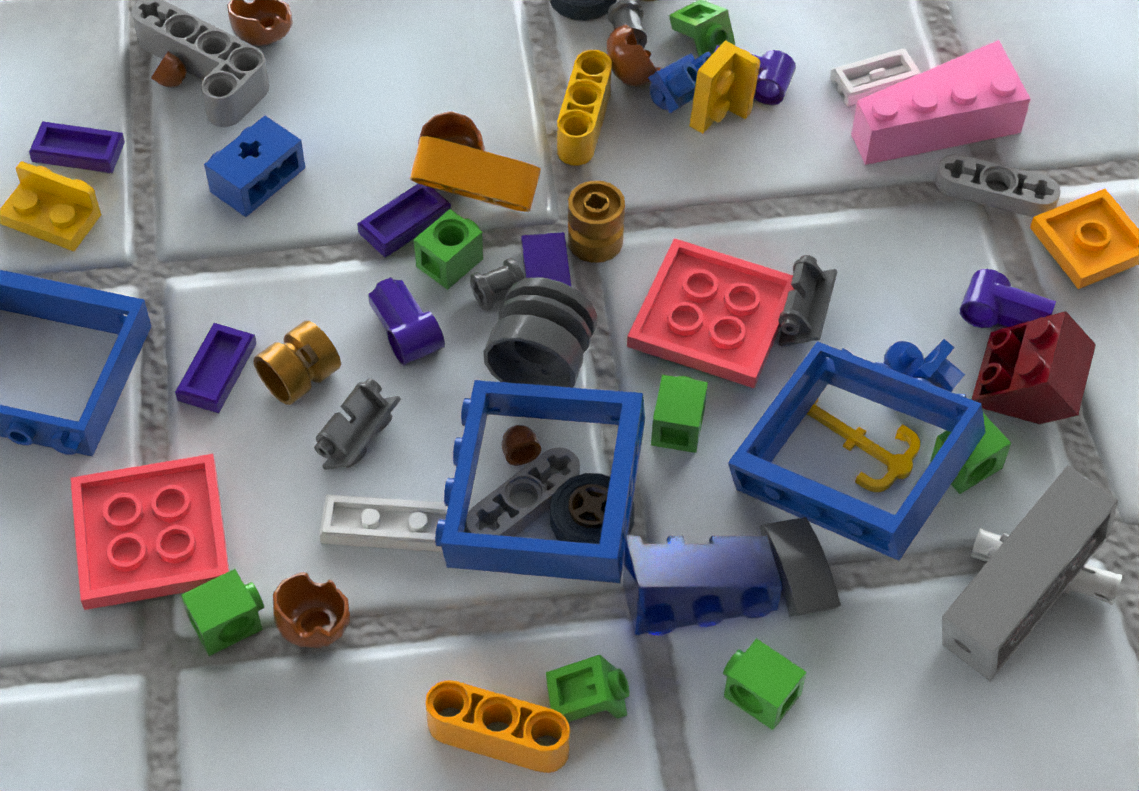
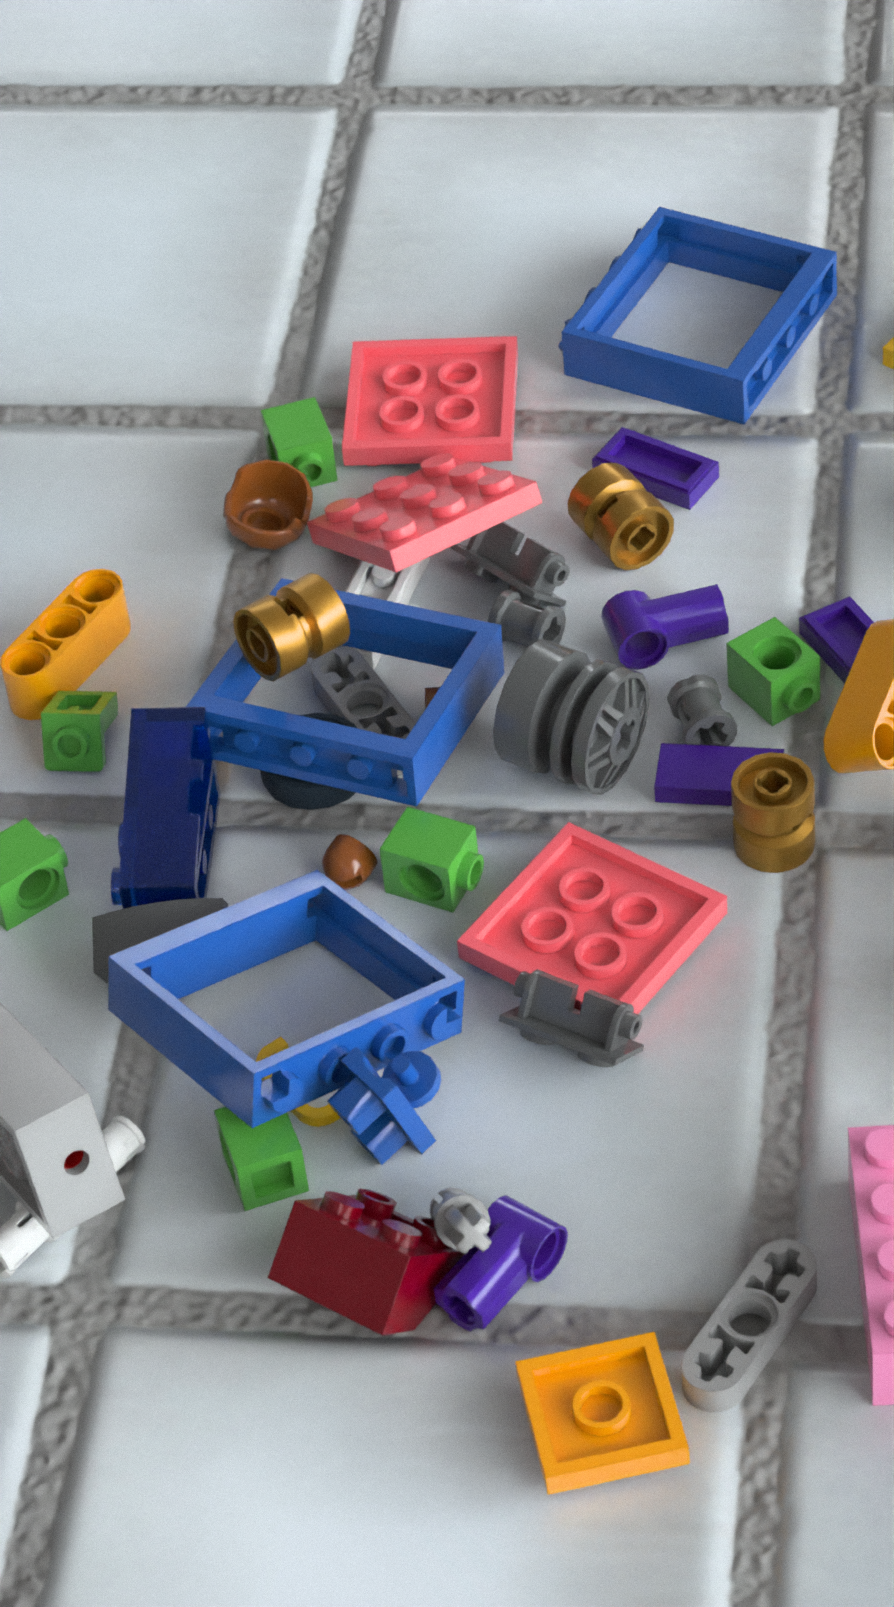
camera: 110 degrees right, 10 degrees down
(318, 487) = (423, 512): none -> coral plate
(419, 406) = (525, 621): none -> dark grey bush
(532, 490) = (289, 628): none -> pearl gold wheel
(690, 470) = (348, 862): none -> dark orange hinge
(1009, 308) = (461, 1220): none -> light grey axle

